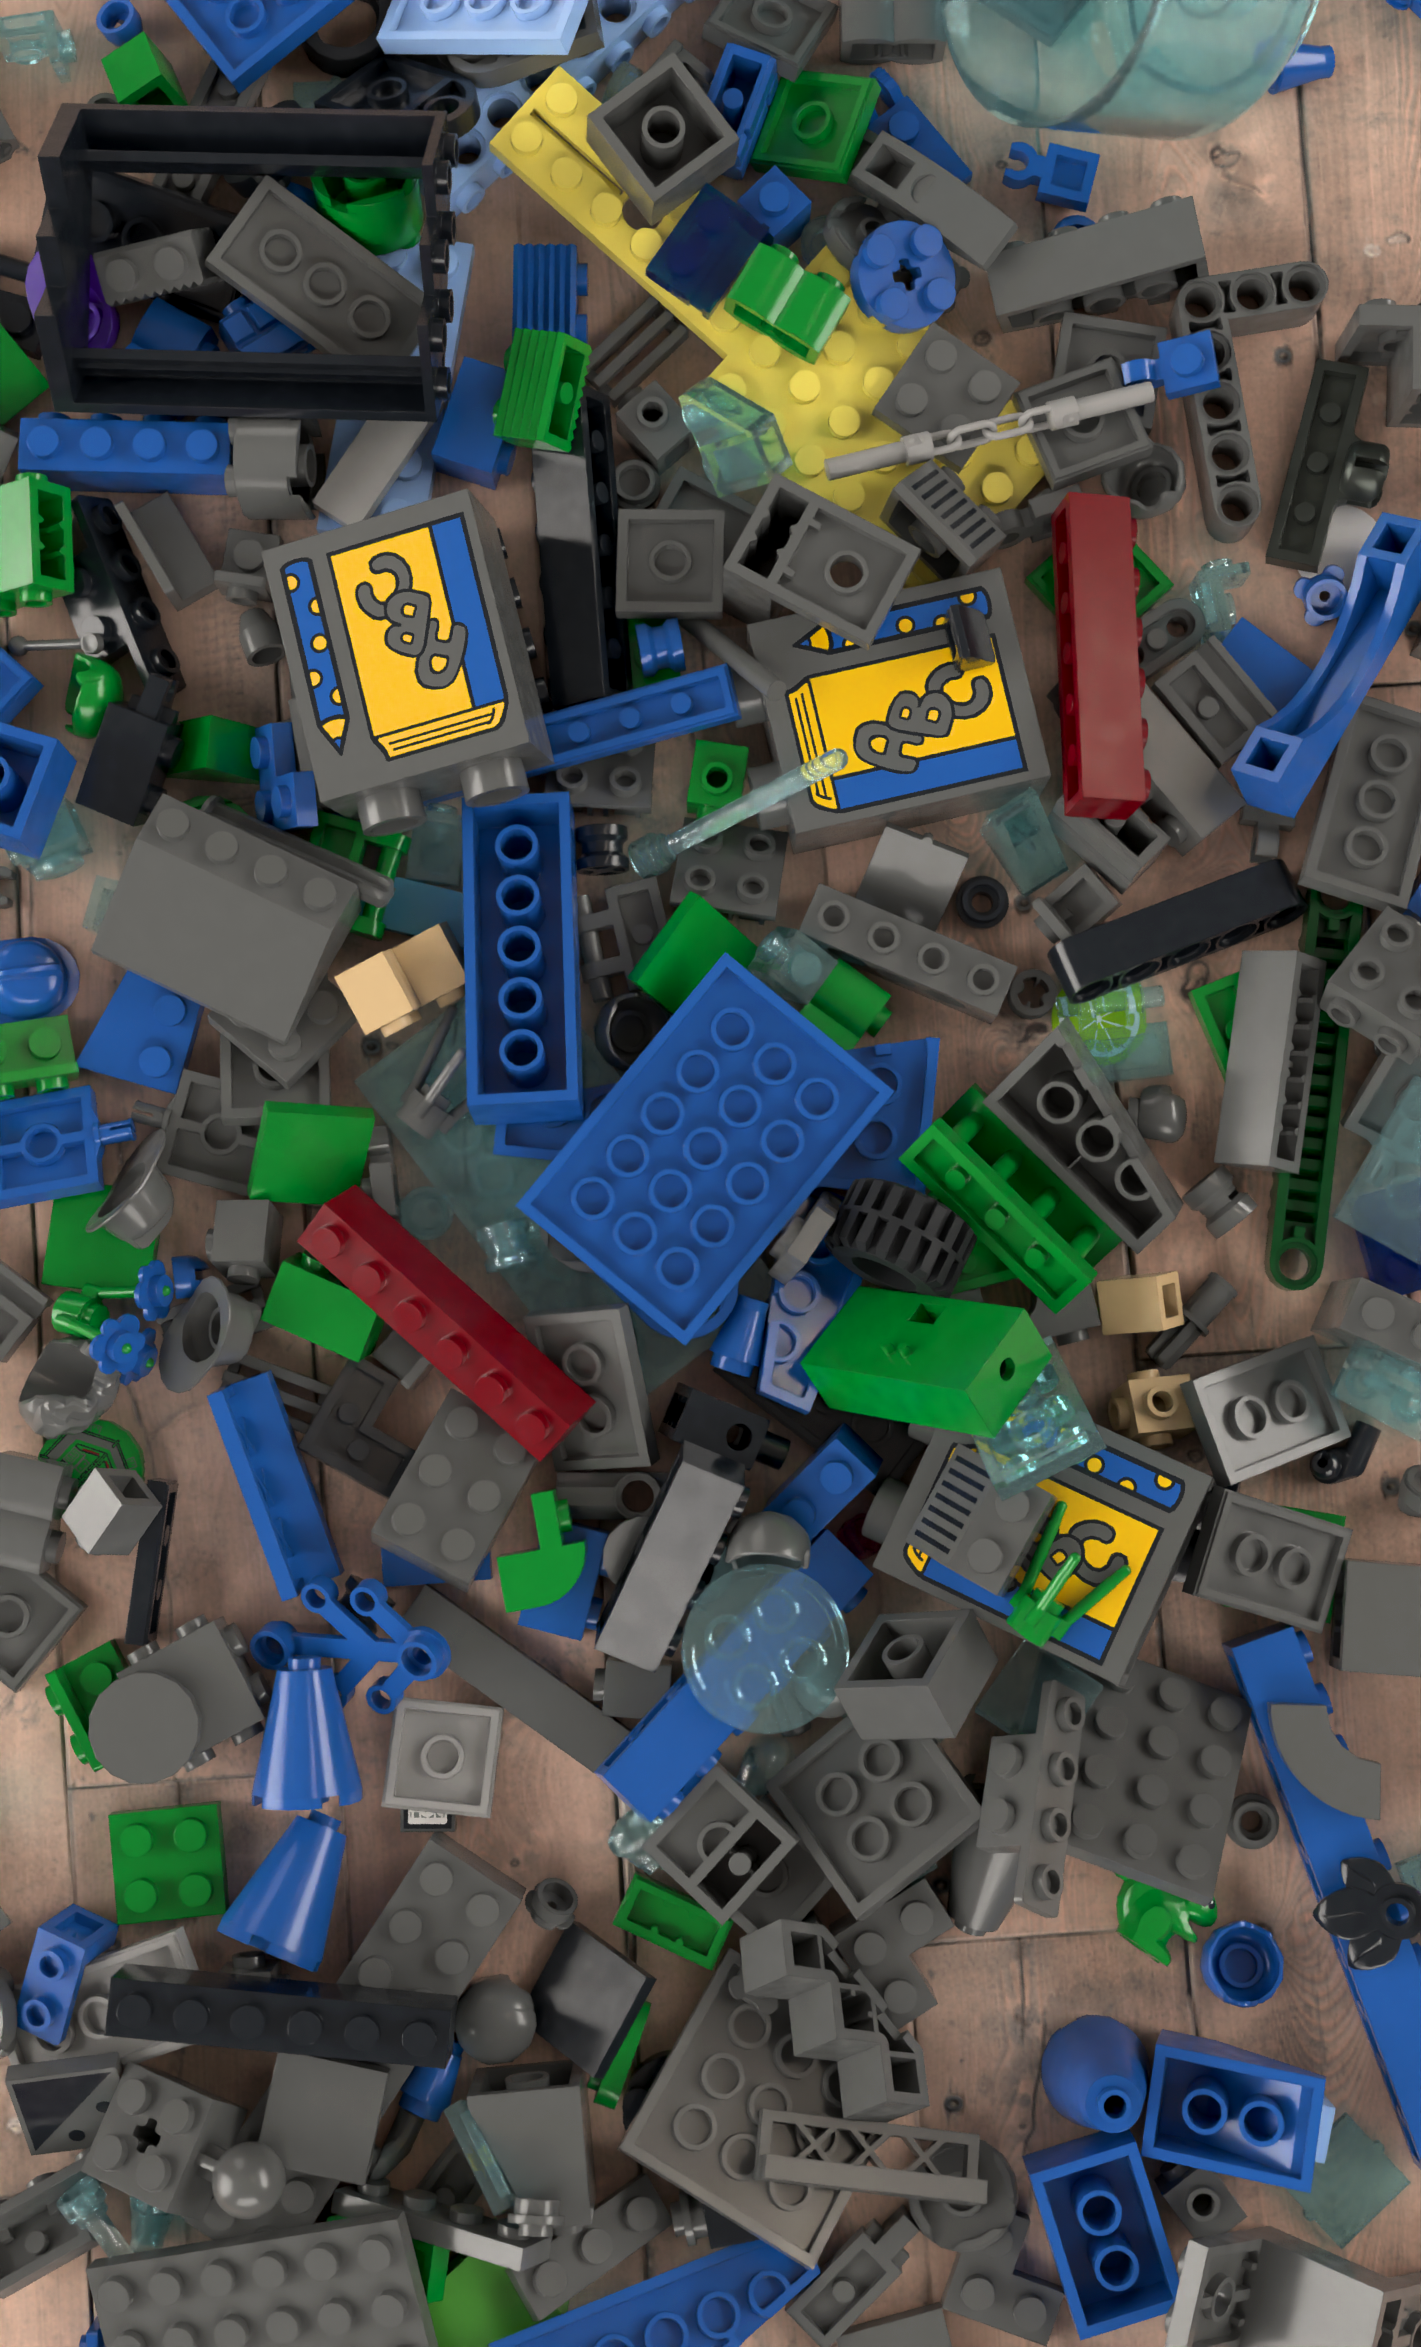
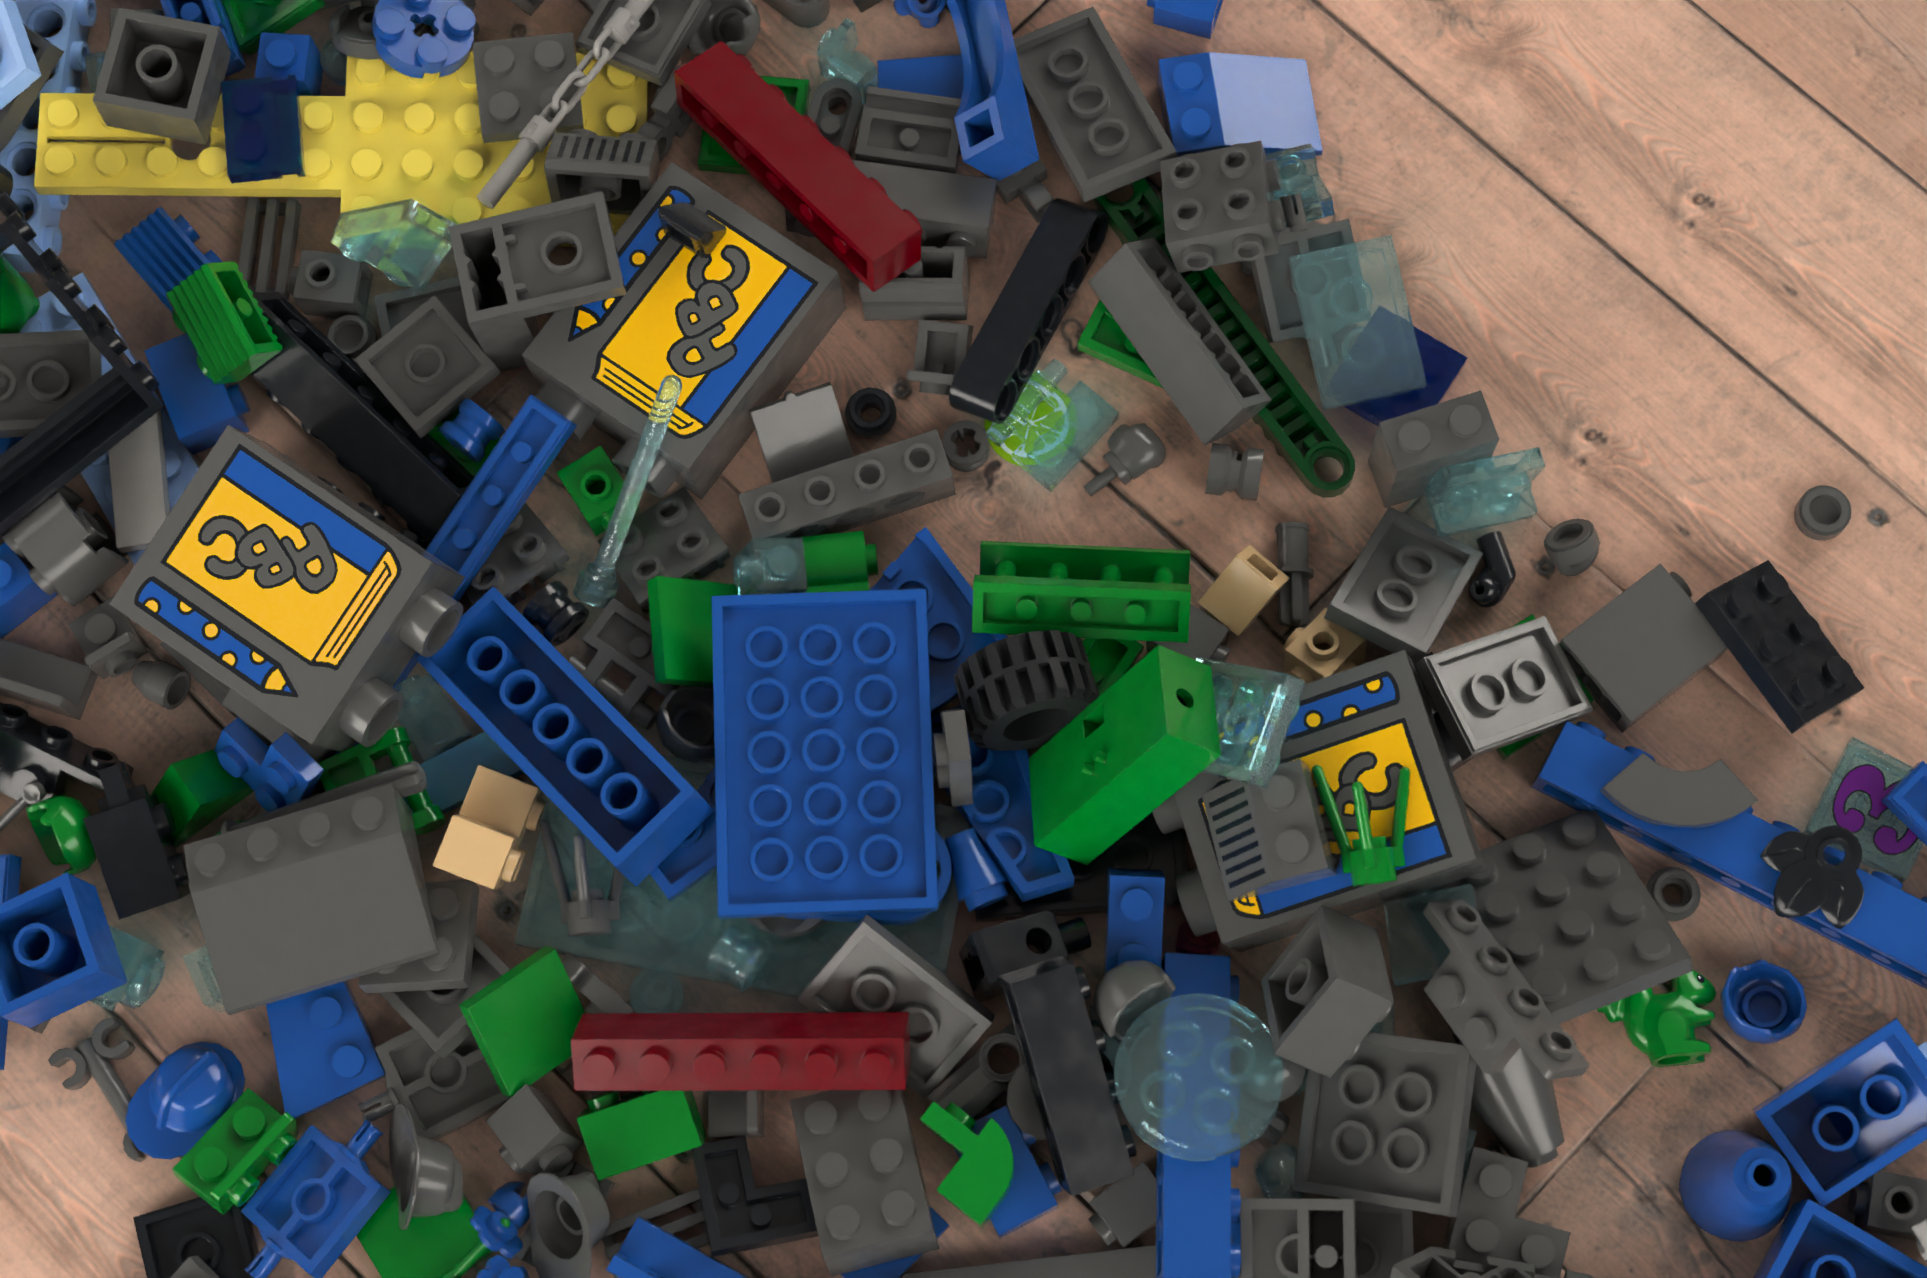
camera: 35 degrees left, 10 degrees down
(735, 657) = (535, 384): dark grey bar -> none
(787, 301) = (353, 114): green brick -> none
(1024, 842) = (862, 343): clear light blue slope -> none
(1084, 1134) = (1089, 505): dark grey wedge -> none

